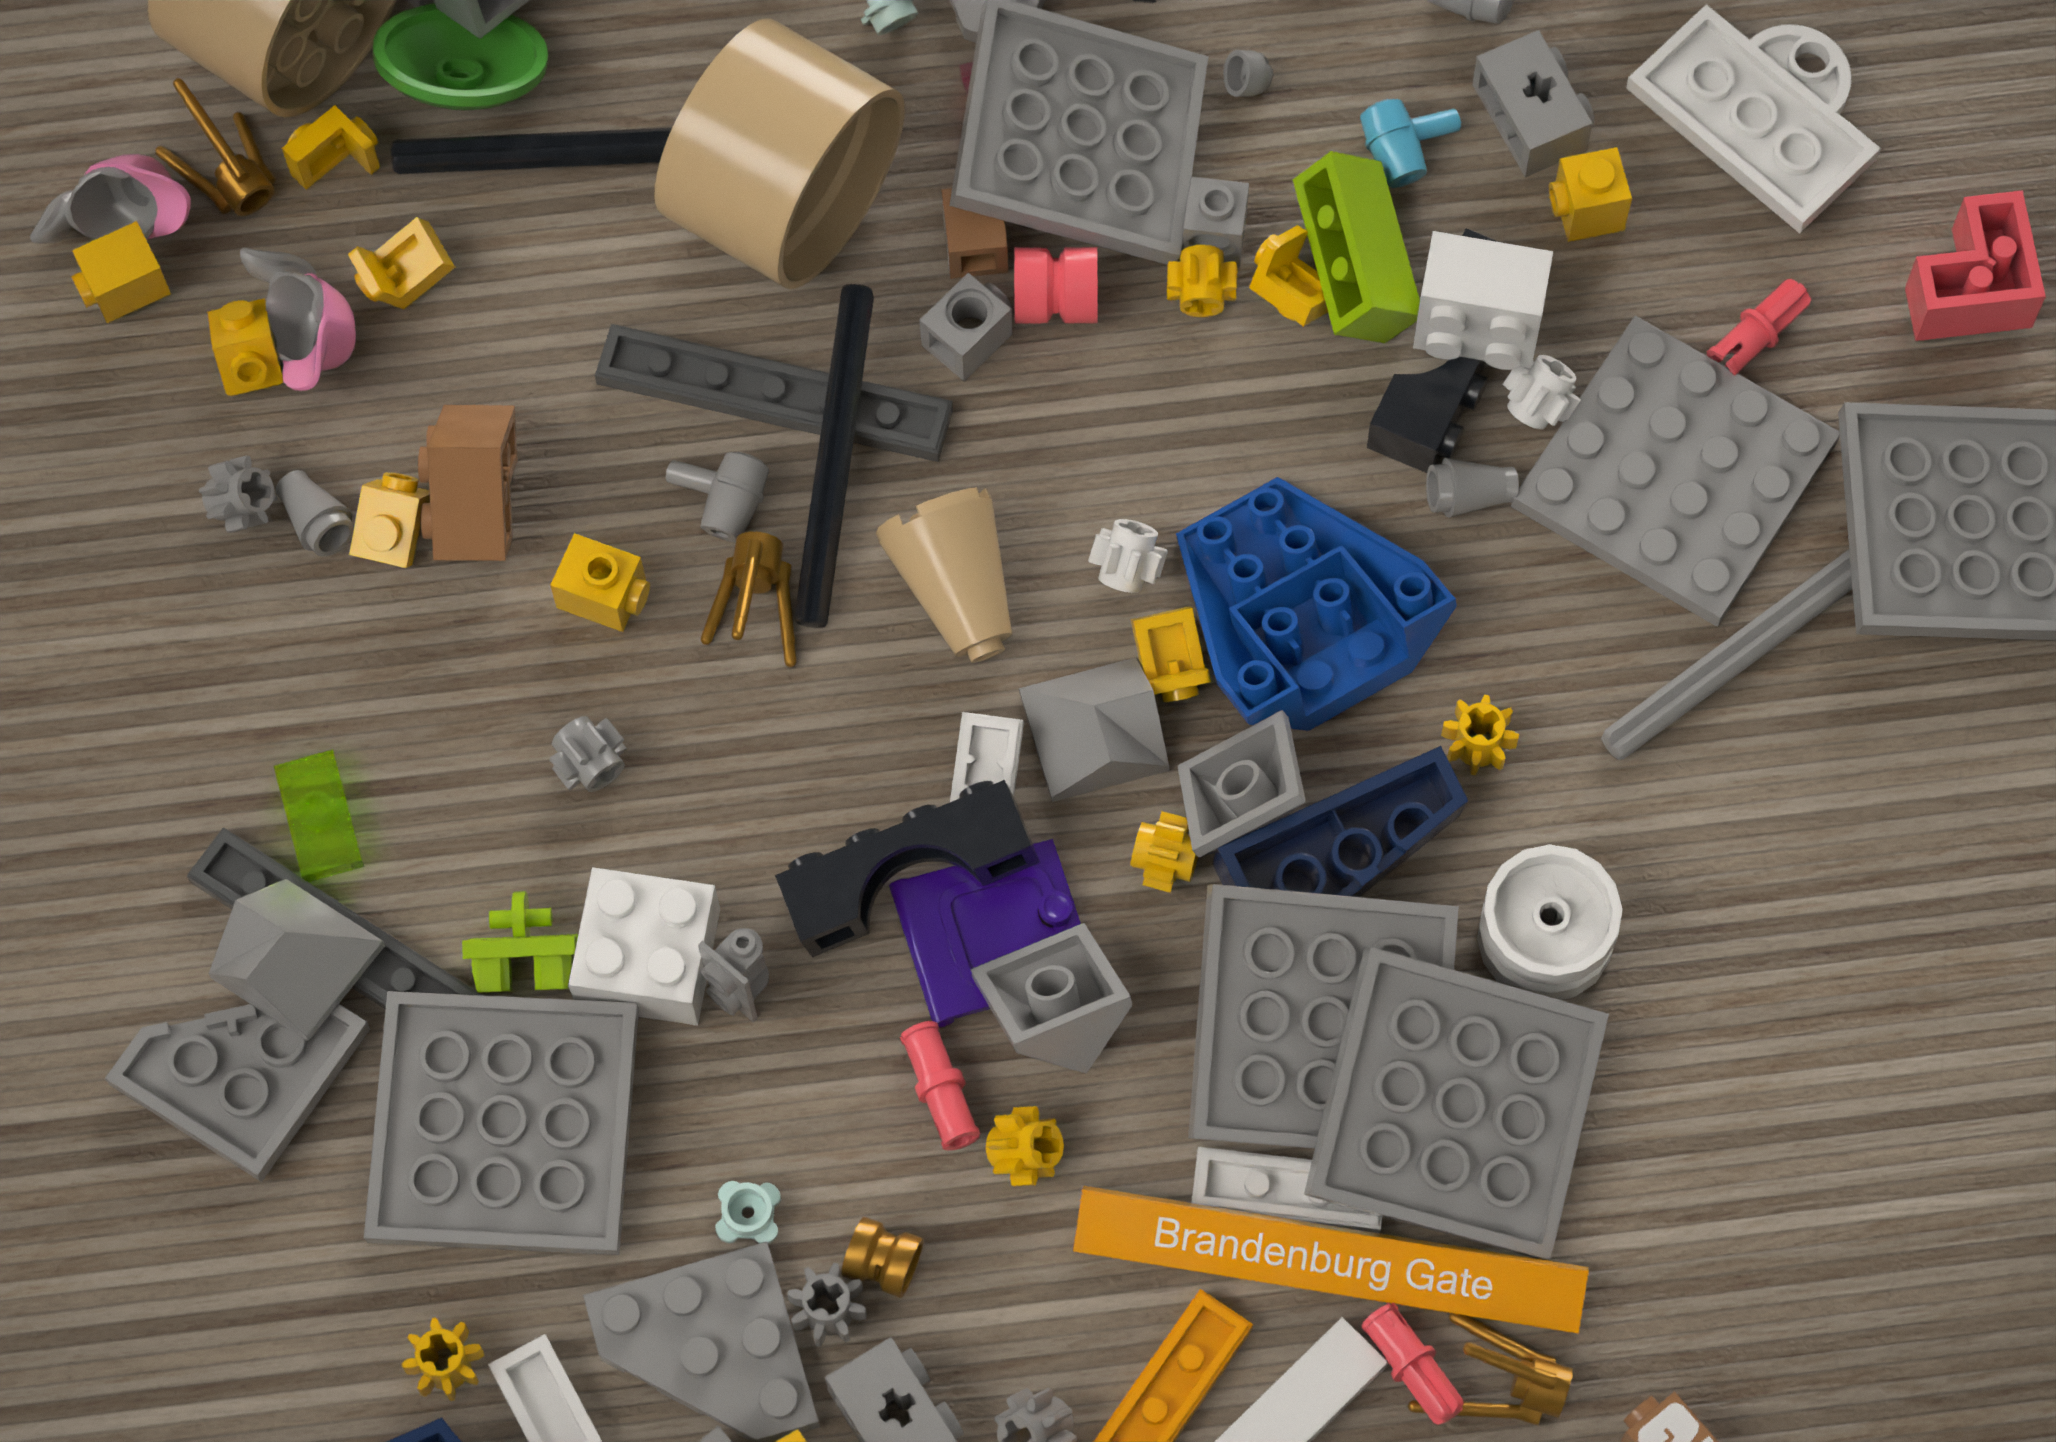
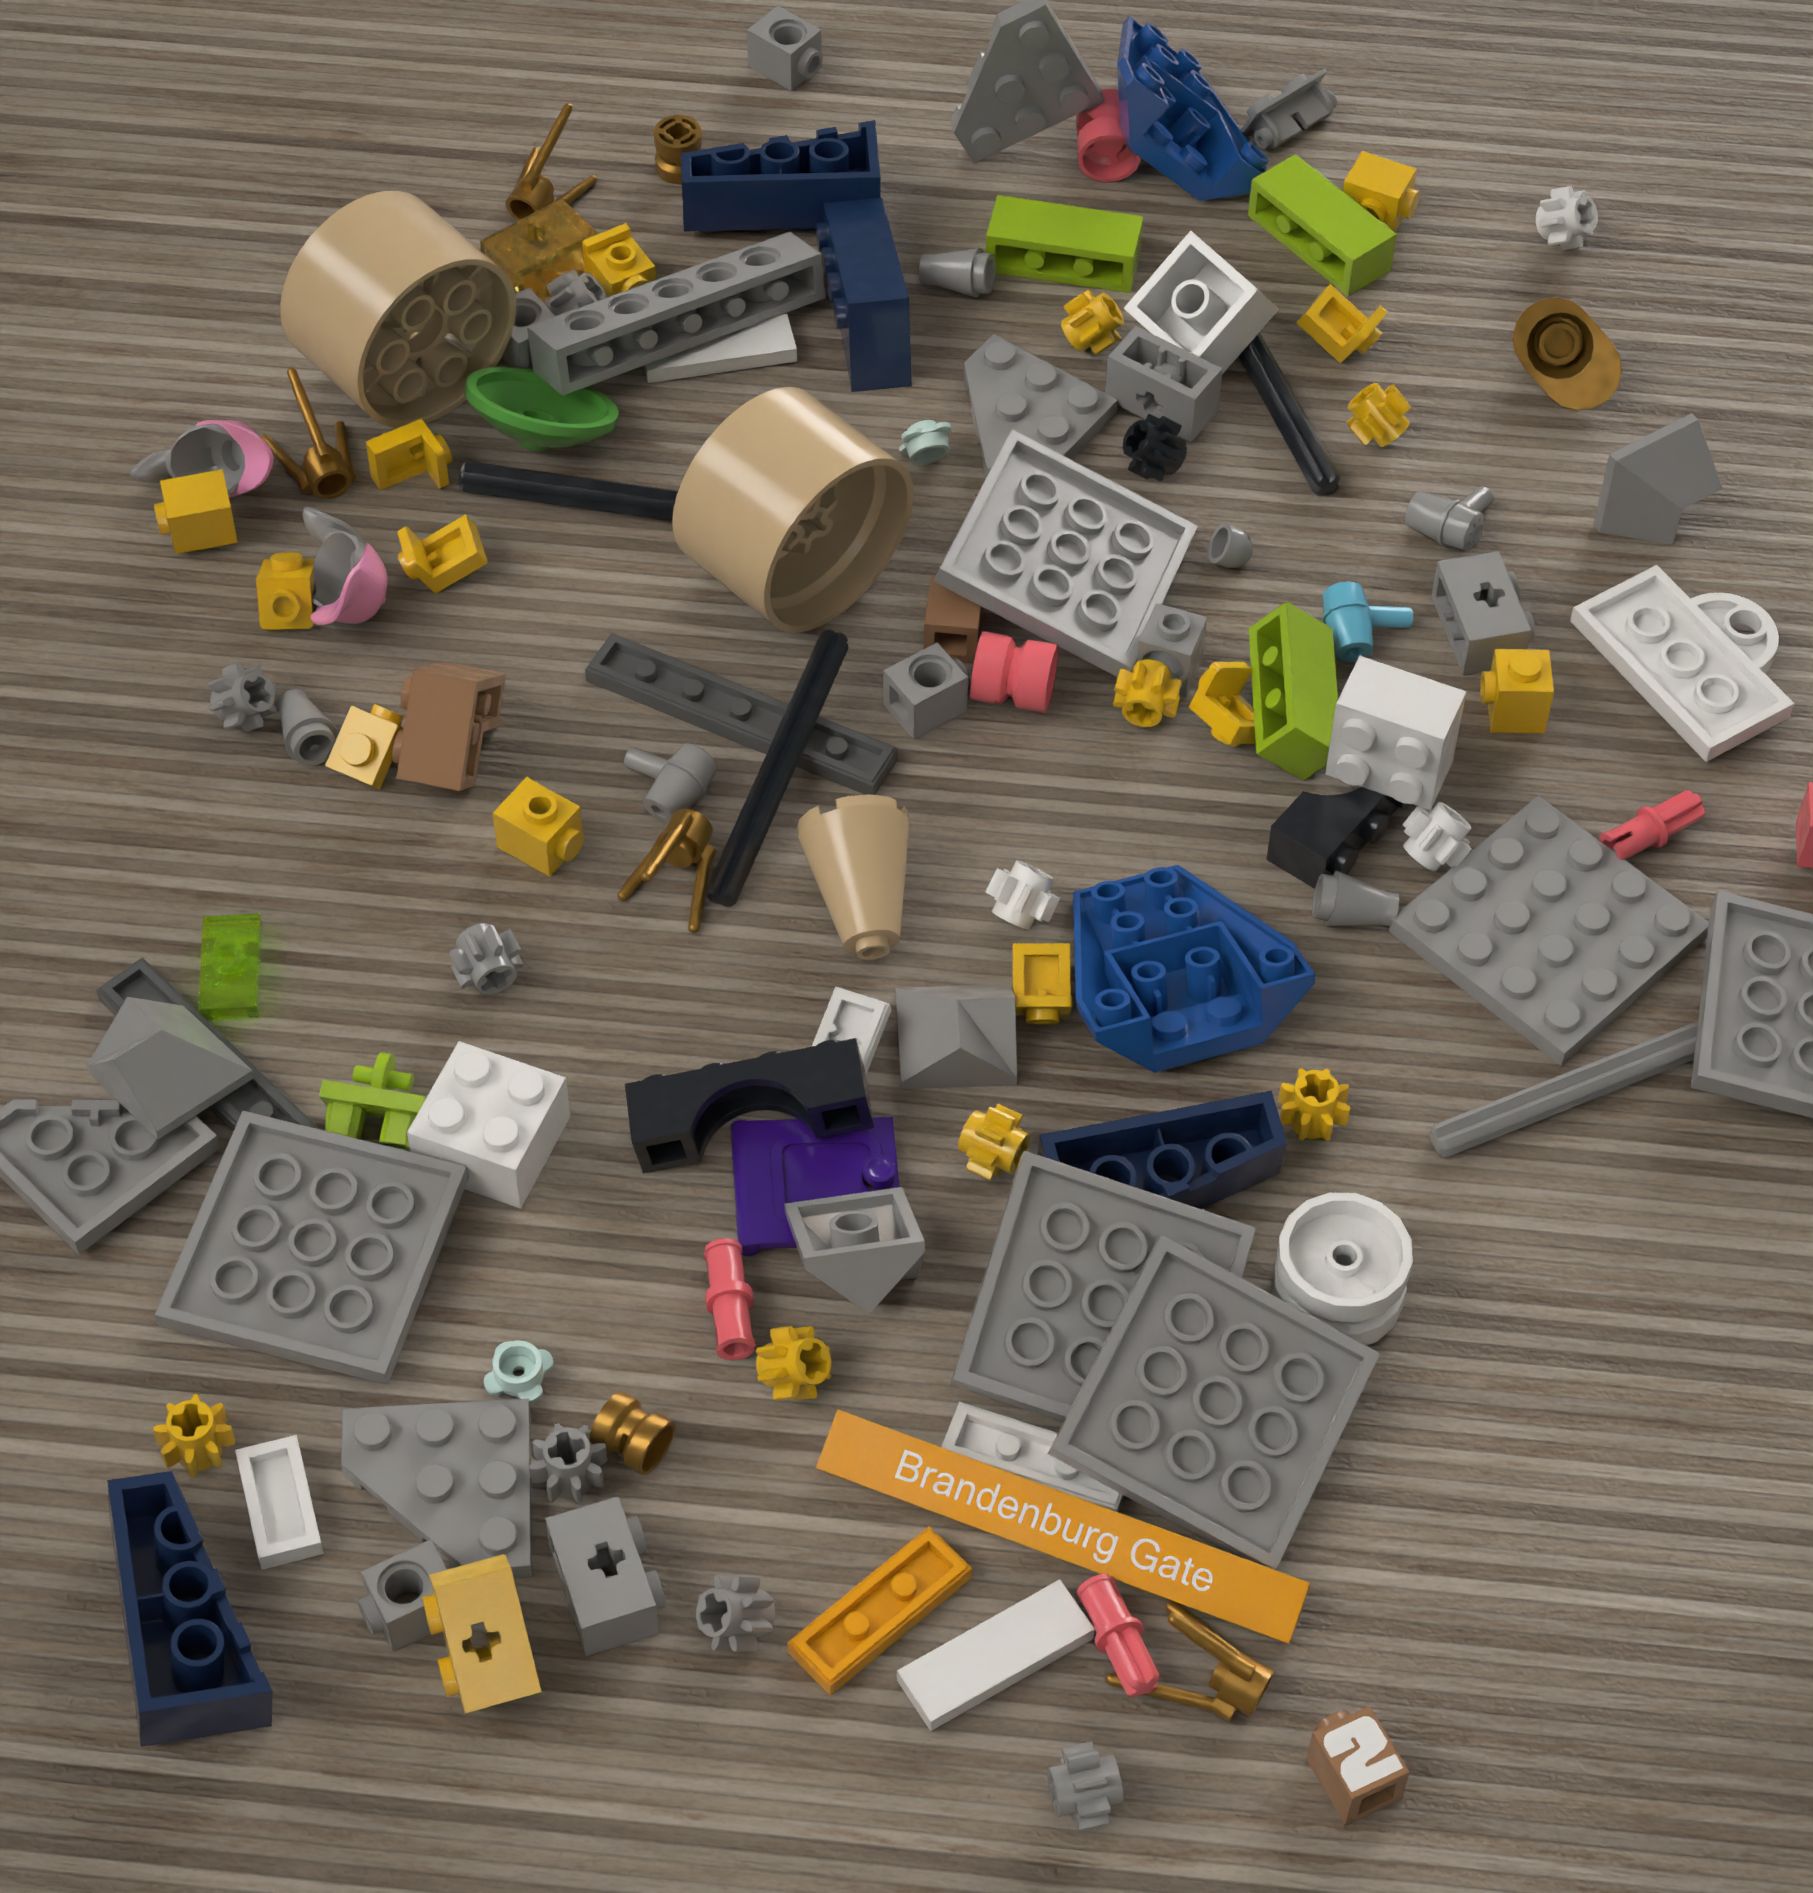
camera: 10 degrees right, 15 degrees down
(735, 972) = (565, 1155): light grey hinge -> none
(1241, 784) = (1076, 1091): light grey slope -> none

